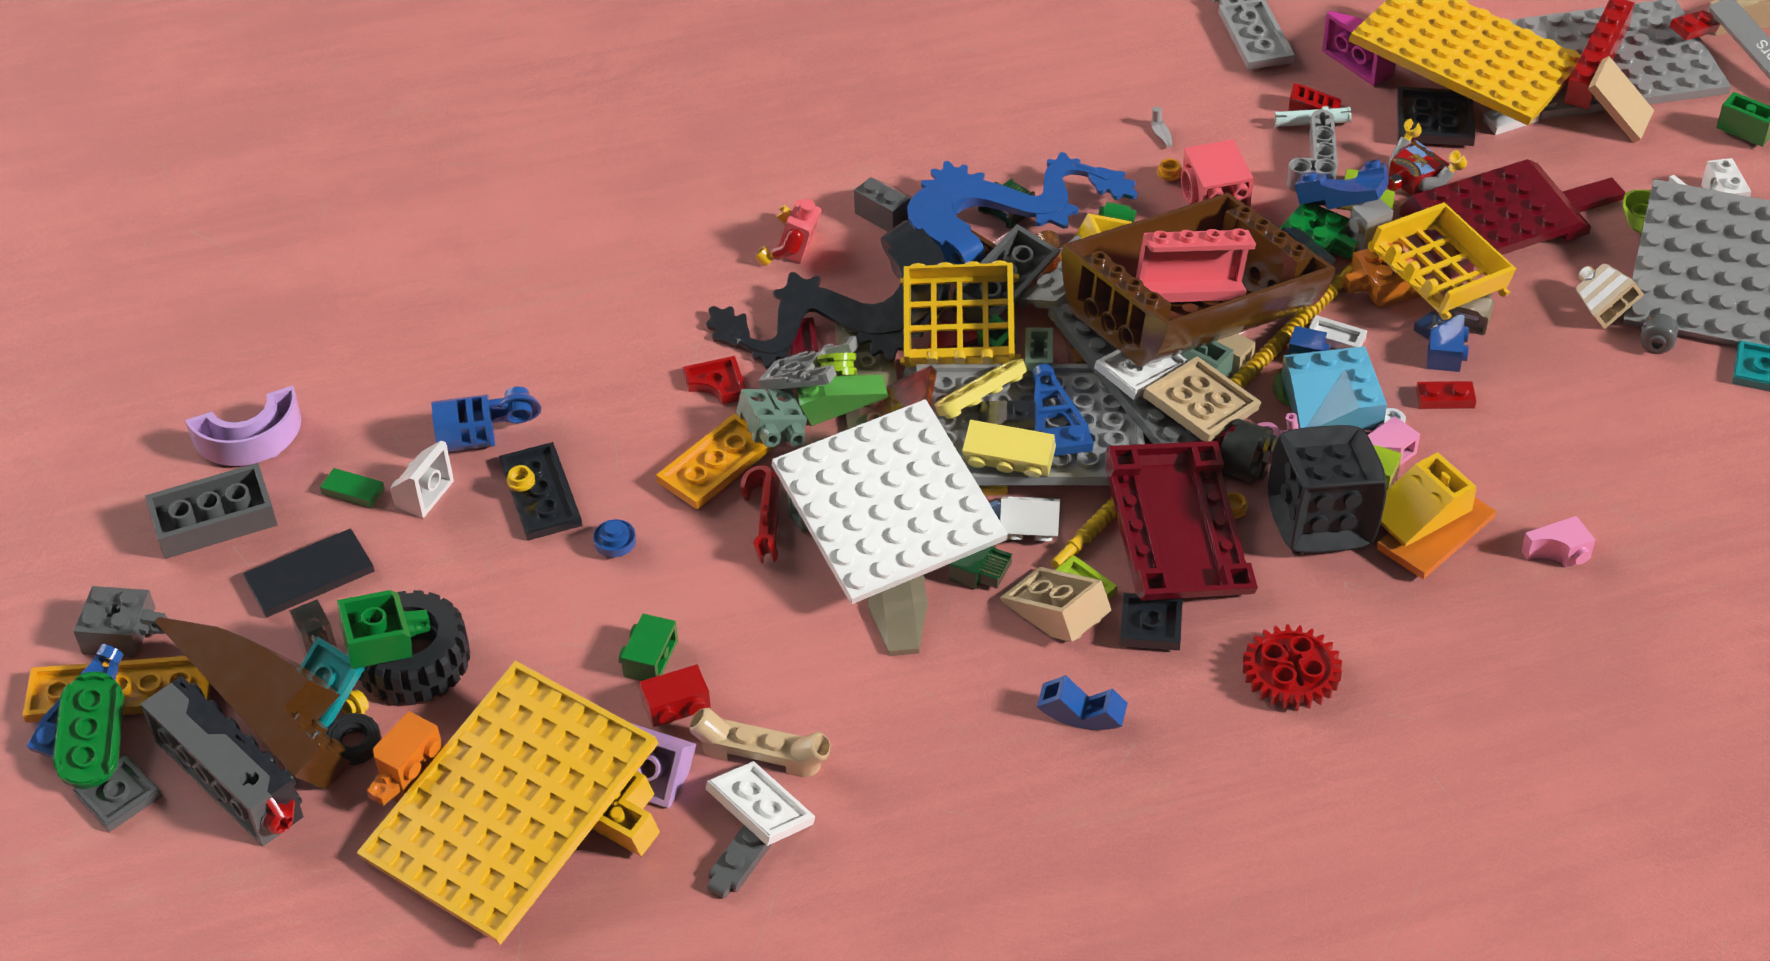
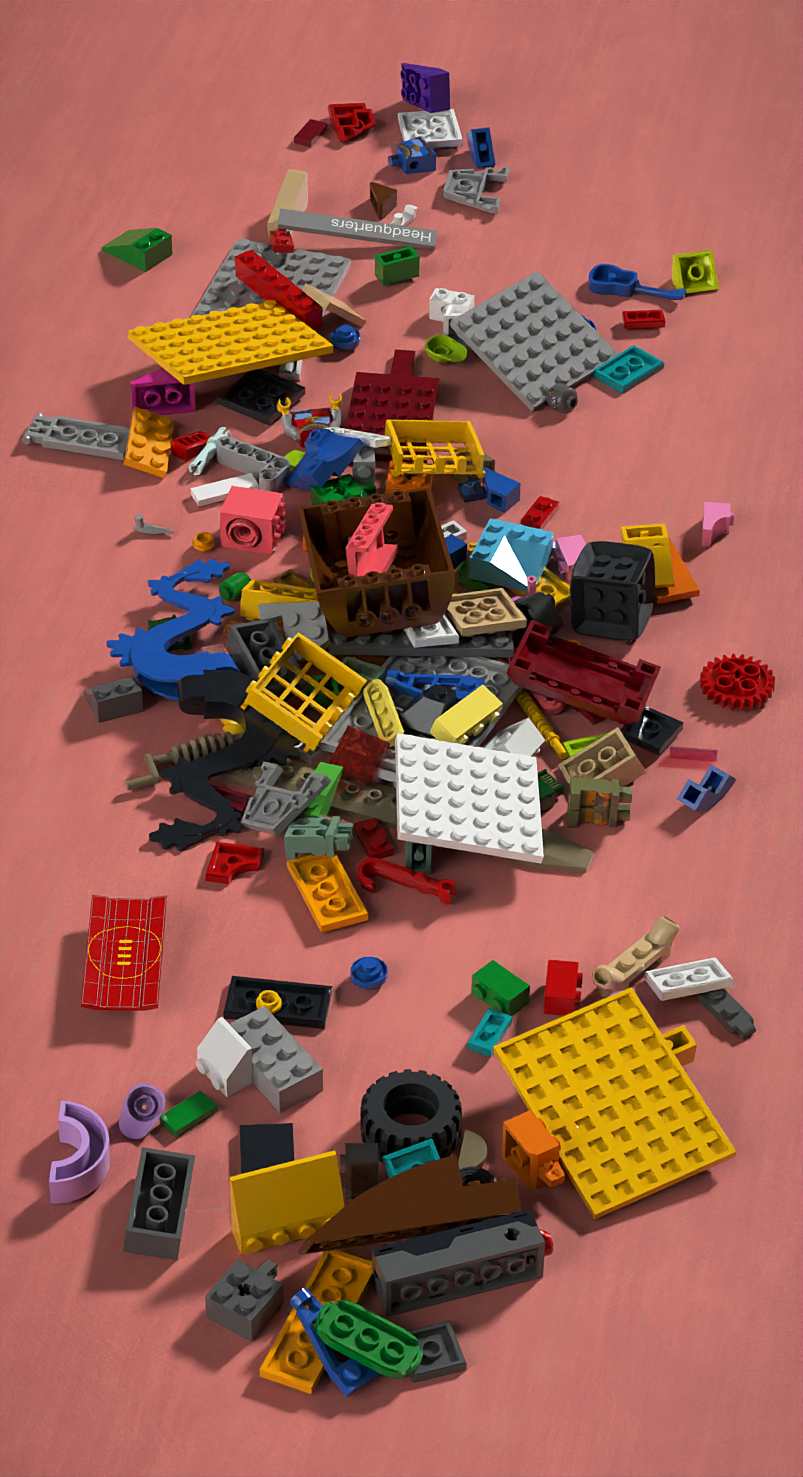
camera: 65 degrees left, 5 degrees down
(233, 593) = (284, 1201): none -> yellow slope
(329, 449) = (136, 1121): none -> lavender cap
(378, 628) = (416, 1109): green hinge -> none
(389, 718) = (473, 1151): none -> dark tan tile
(446, 513) = (279, 1062): none -> light grey brick
(469, 420) = (183, 1007): blue cylinder -> none
(524, 350) = (124, 954): none -> red hinge
(582, 665) = (489, 1032): none -> teal plate
(797, 235) = (110, 751): torso -> none
(837, 279) = (193, 751): none -> dark tan piece
(842, 363) = (292, 778): lime wheel -> none
(979, 608) = (597, 802): none -> olive hips
(1143, 674) = (693, 753): none -> clear pink piece
(1264, 151) = (219, 490): none -> white tile
(1272, 73) = (149, 442): none -> light orange plate
(1403, 194) = (368, 439): none -> white tile
(1591, 134) = (345, 337): none -> blue plate
(1607, 293) = (511, 399): tan torso -> none

